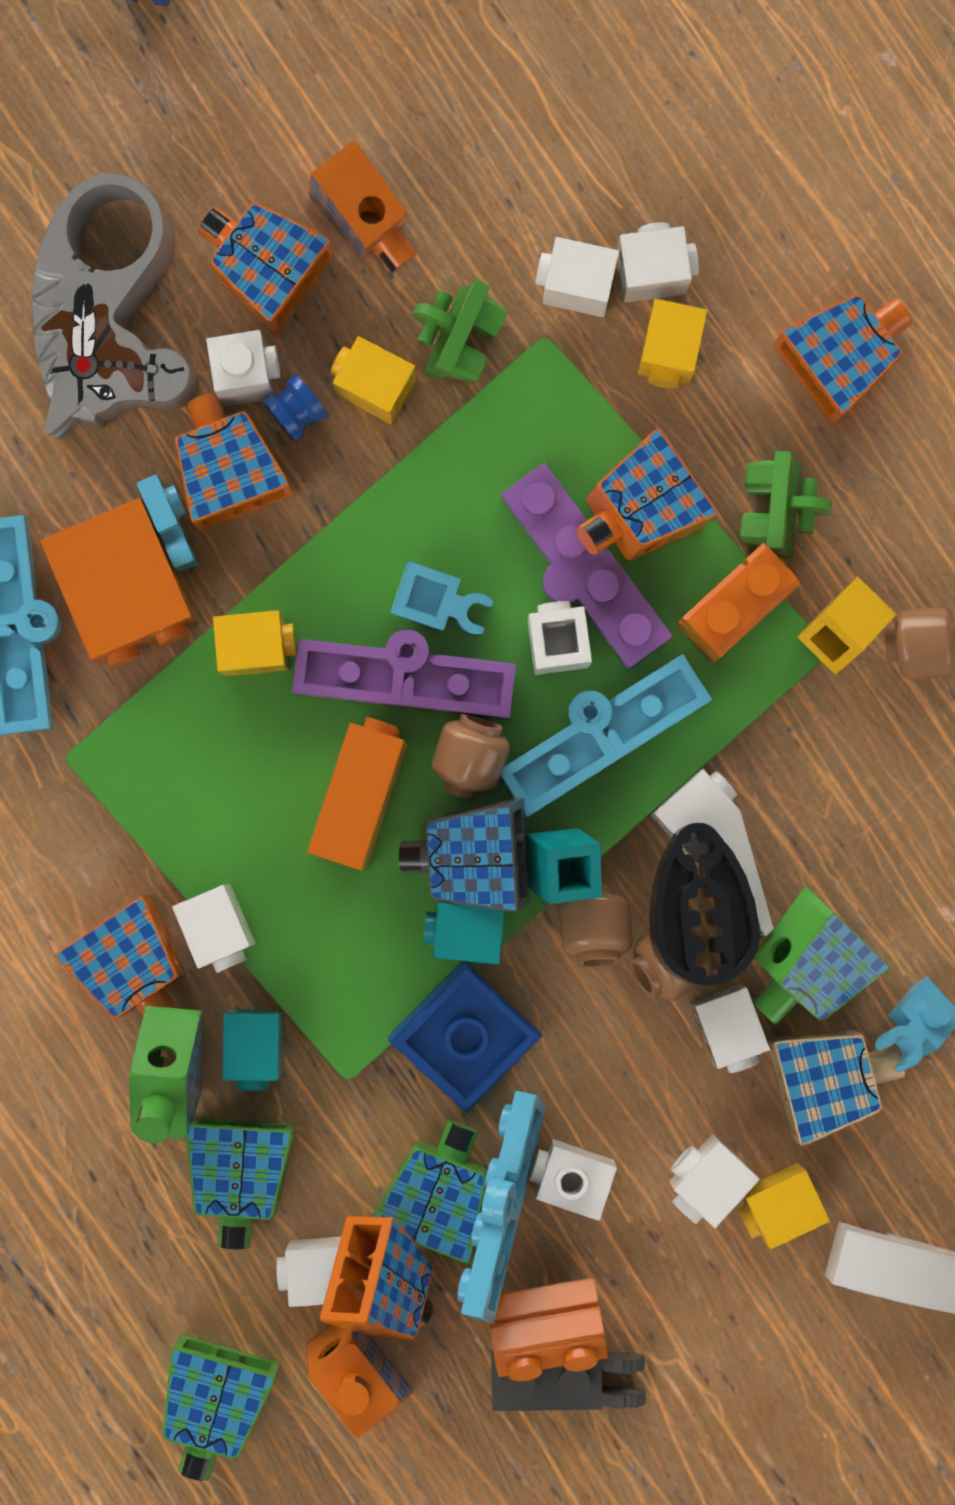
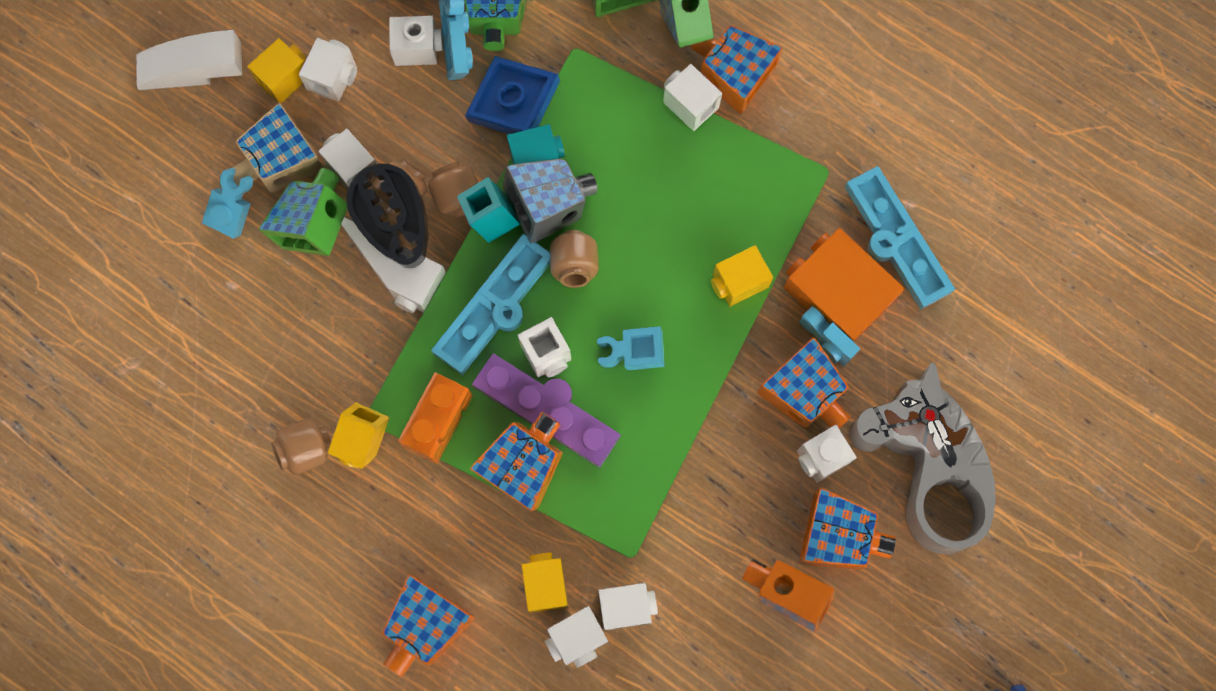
camera: 155 degrees right, 10 degrees down
(253, 1047) = (640, 45): teal brick -> none
(295, 408) = (779, 443): blue wheel -> none
(359, 794) = (634, 201): orange brick -> none
(373, 379) = (736, 481): yellow brick -> none
(404, 676) = (636, 293): medium lavender hinge -> none
(468, 311) = (699, 535): bright green hips -> none
(781, 481) = (428, 485): bright green hips -> none

